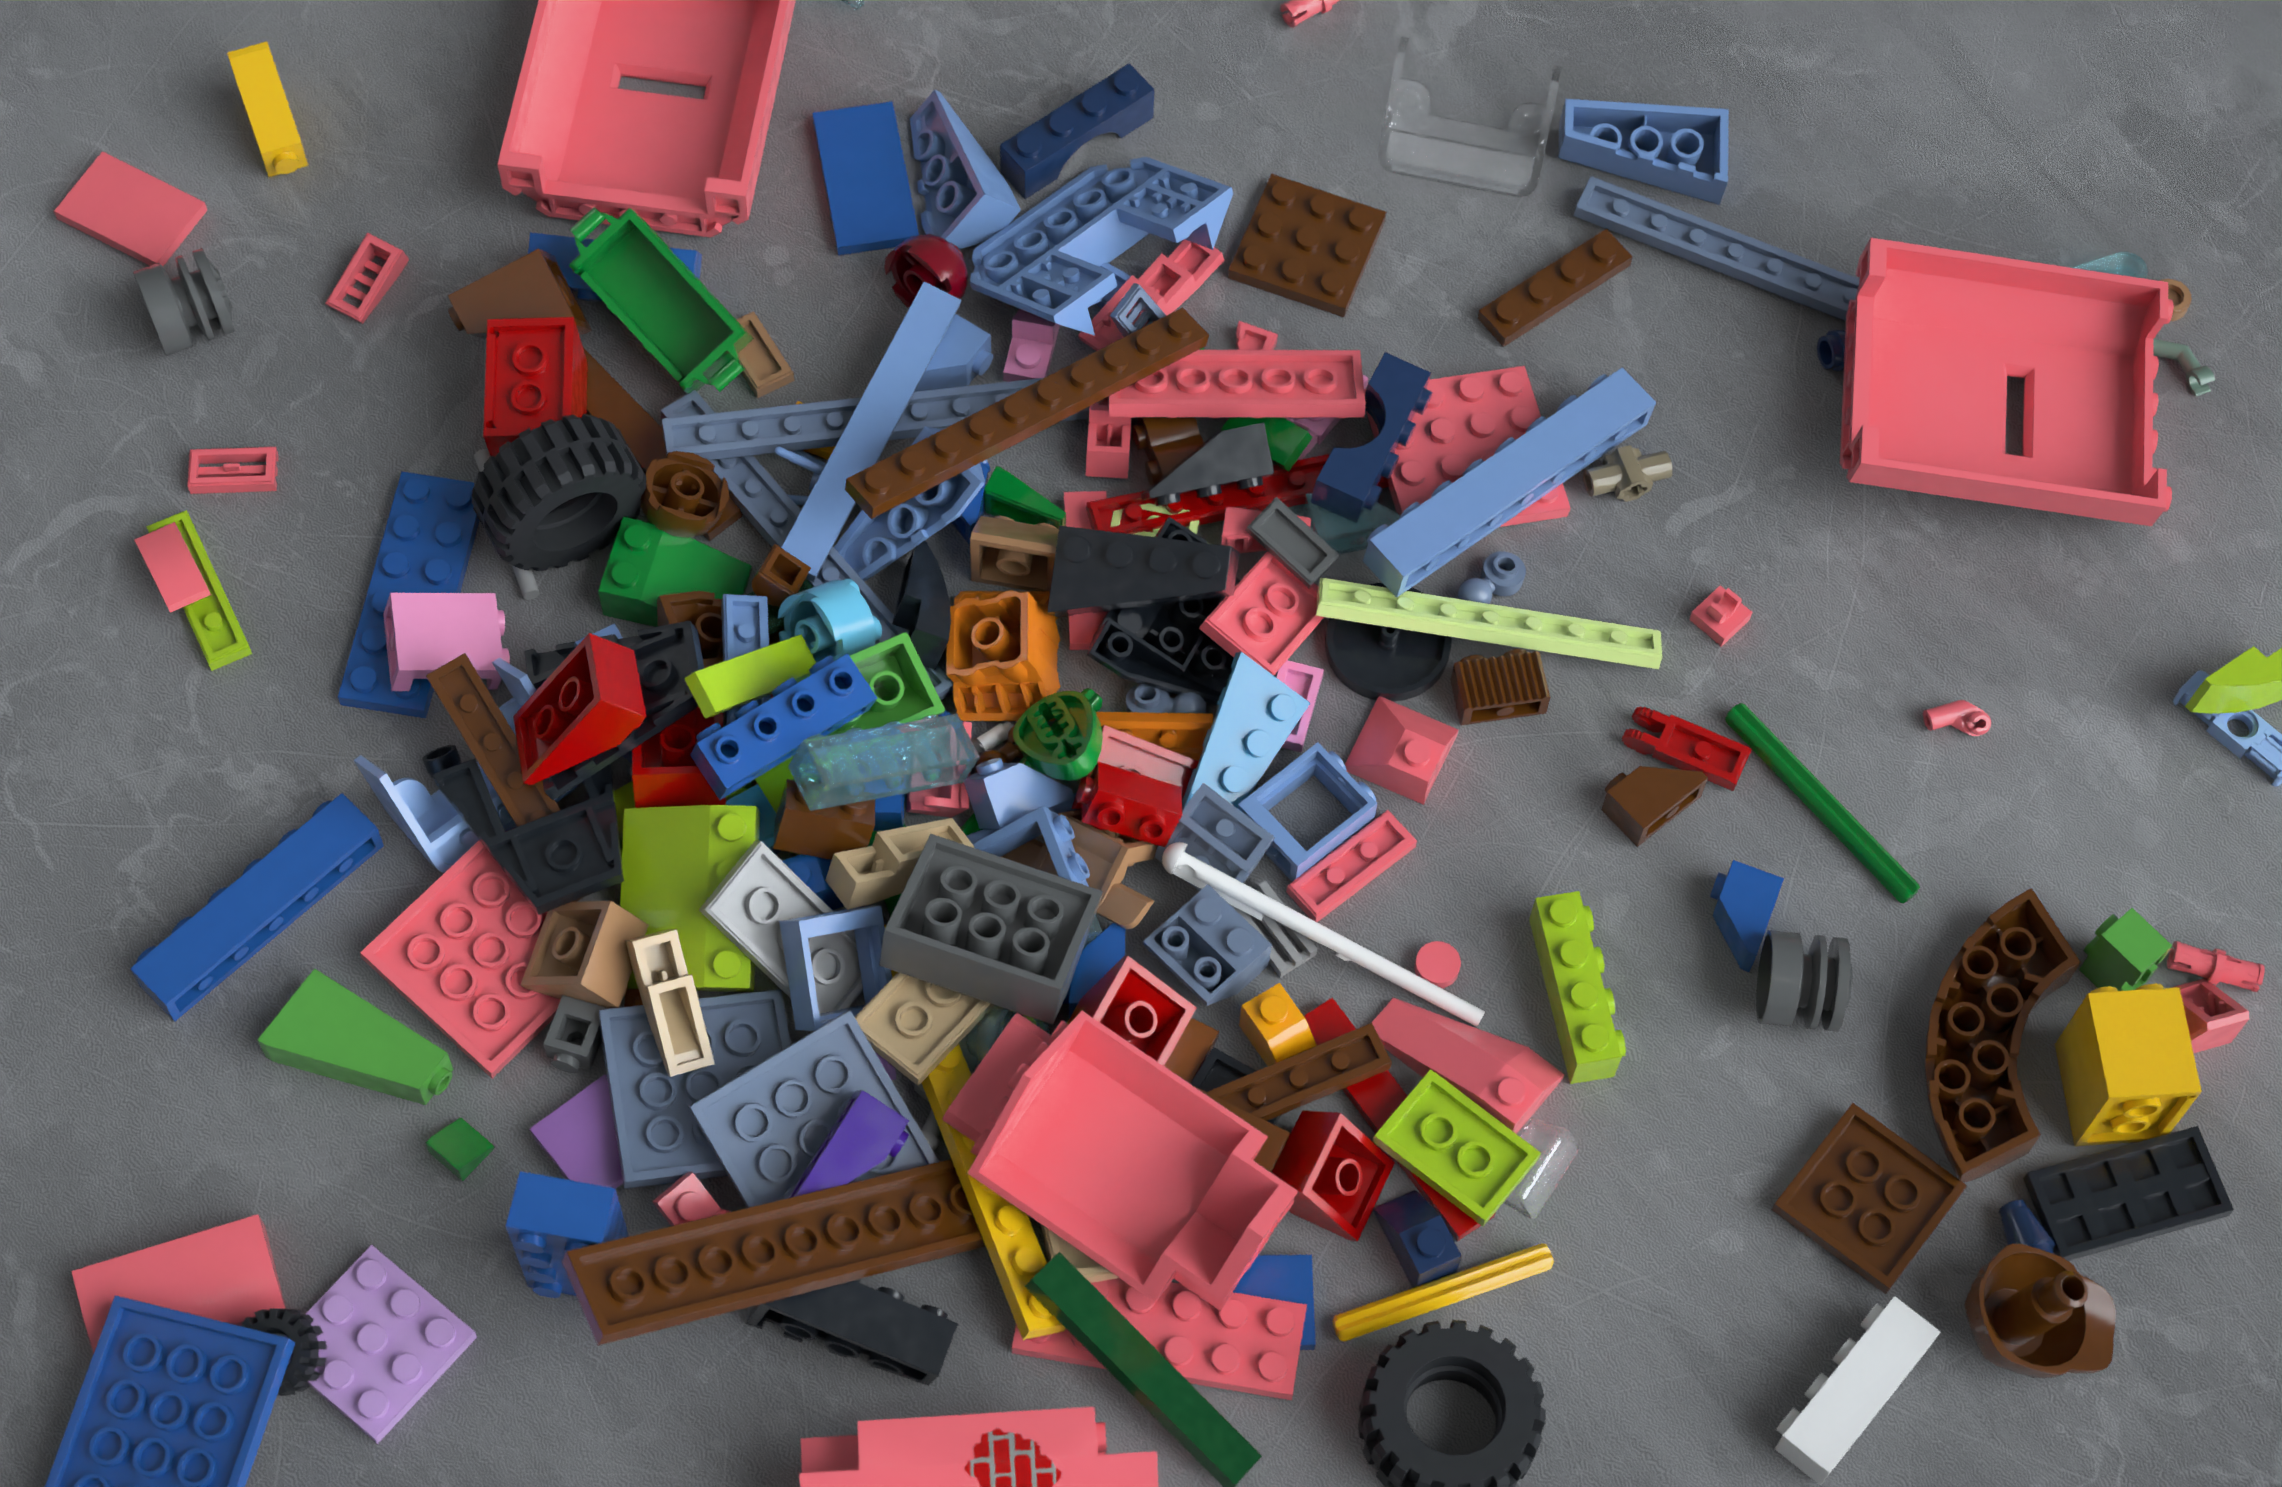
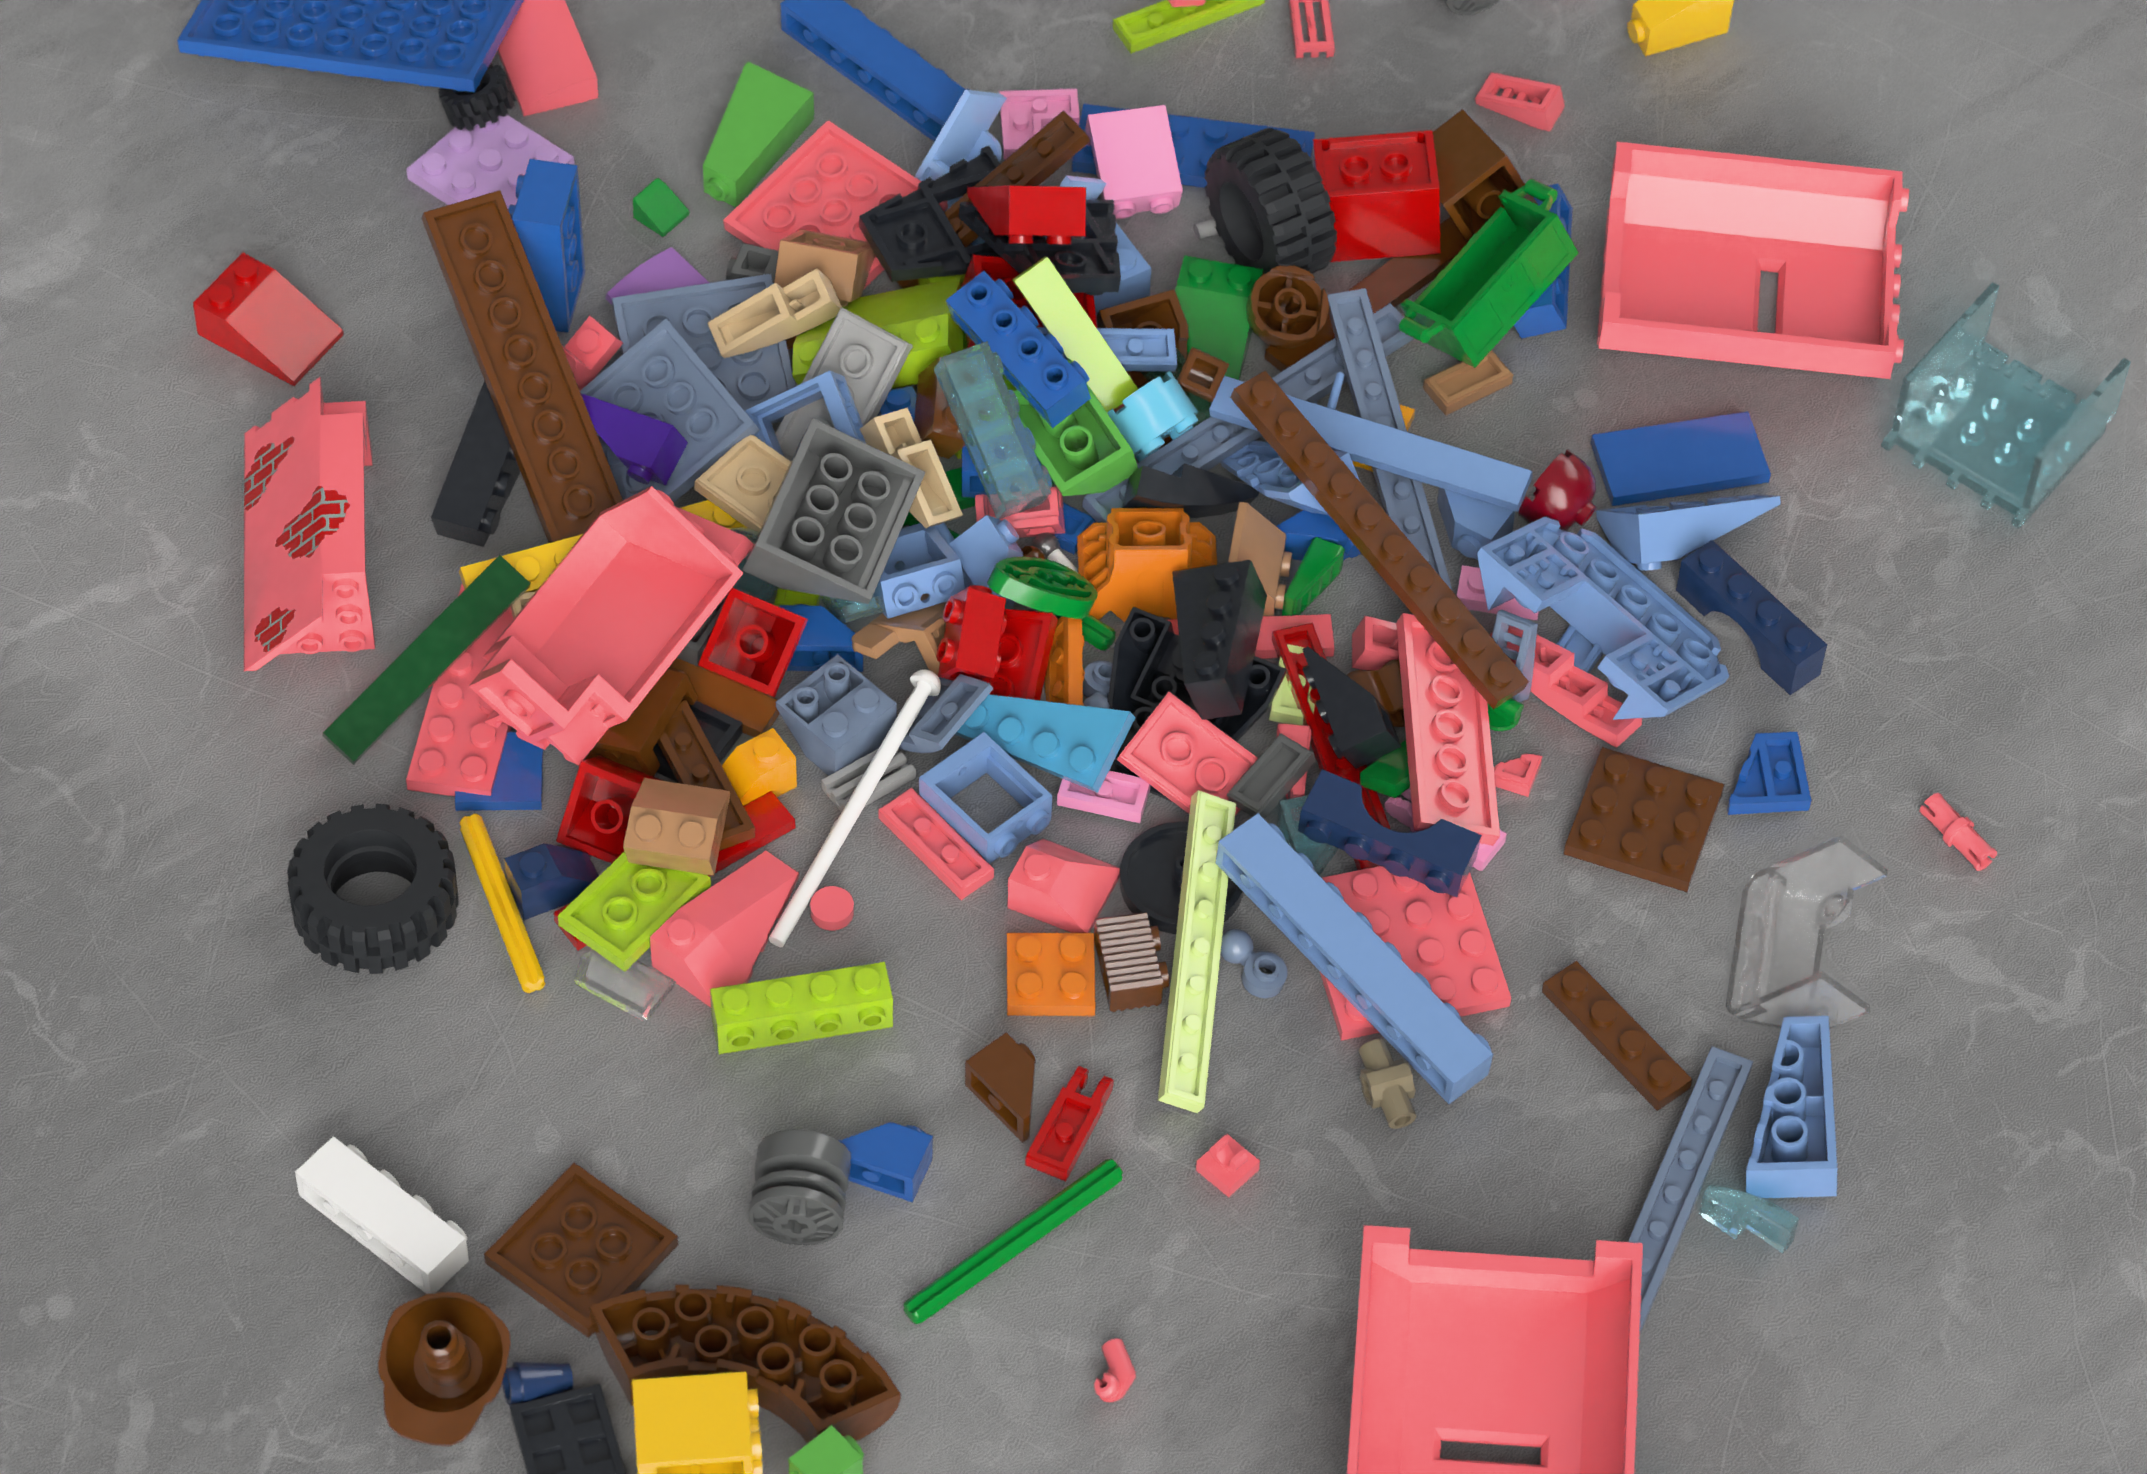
camera: 90 degrees right, 10 degrees down
(345, 738) = (1031, 110): none -> bright pink plate
(1261, 135) = (1772, 777): none -> blue wing
(1390, 1088) = (676, 826): none -> medium nougat slope
(1508, 763) = (1050, 974): none -> orange plate
(1755, 194) = (1736, 1211): none -> clear light blue slope

